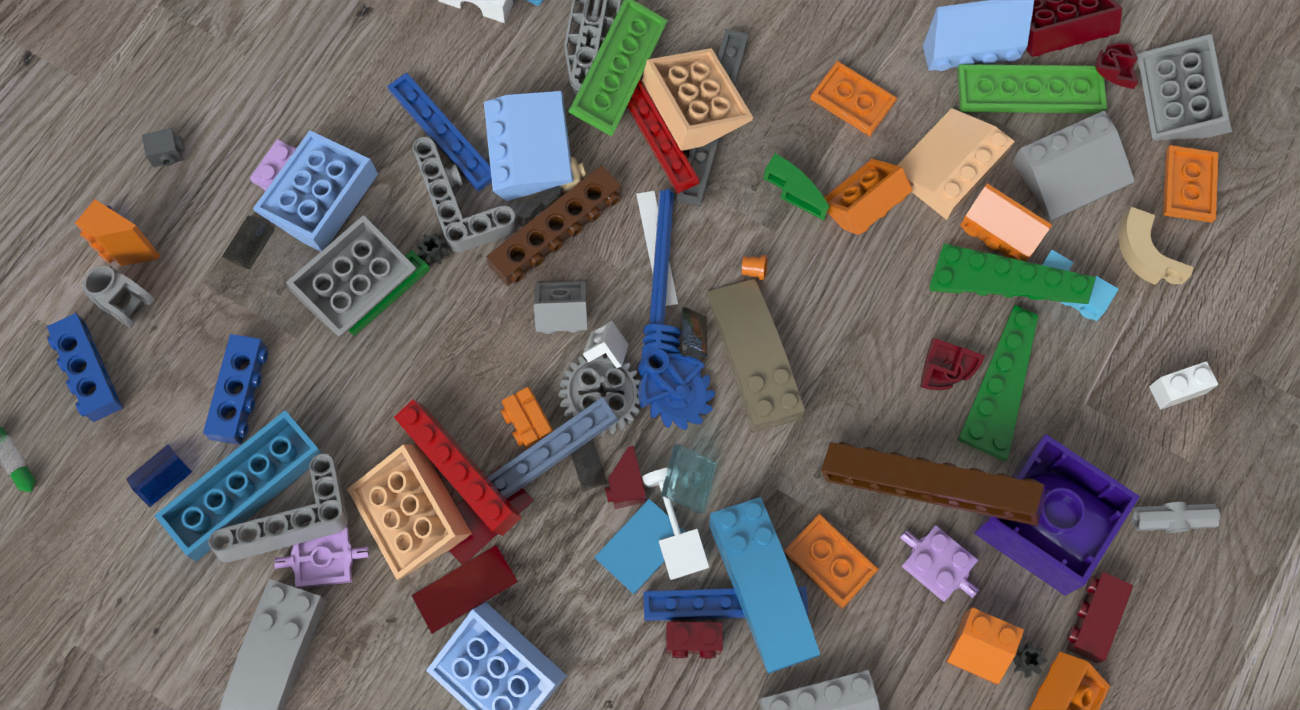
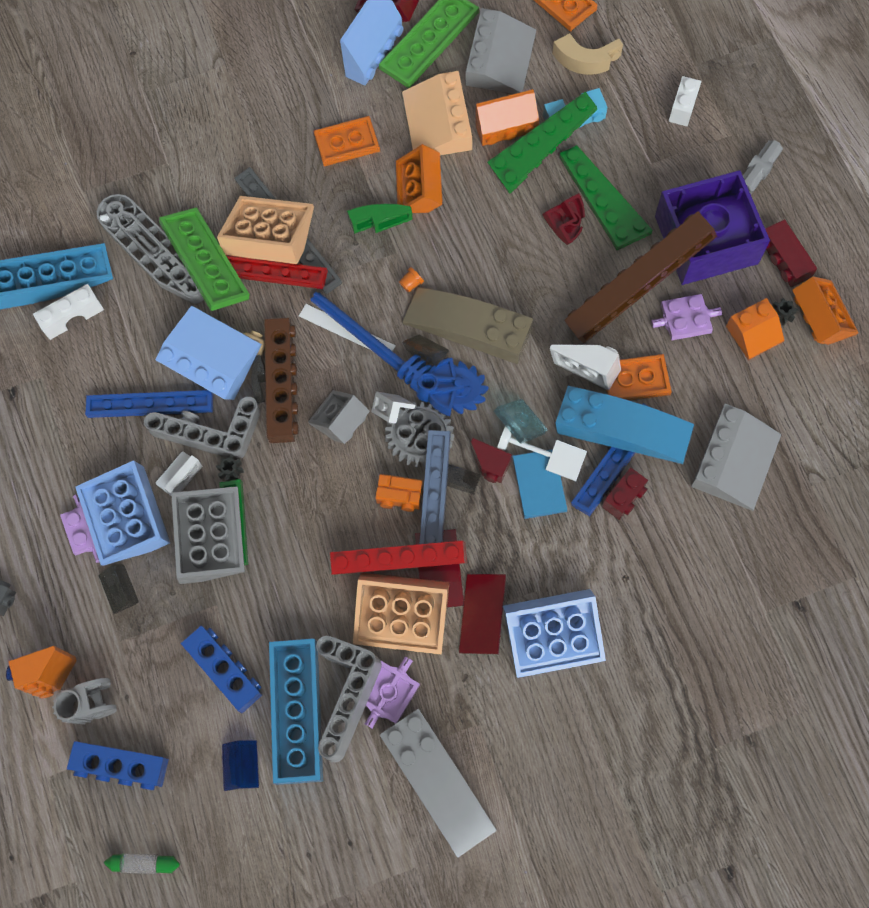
camera: 45 degrees left, 0 degrees up
(394, 210) = (179, 473): none -> white panel
(806, 510) = (590, 362): none -> white slope

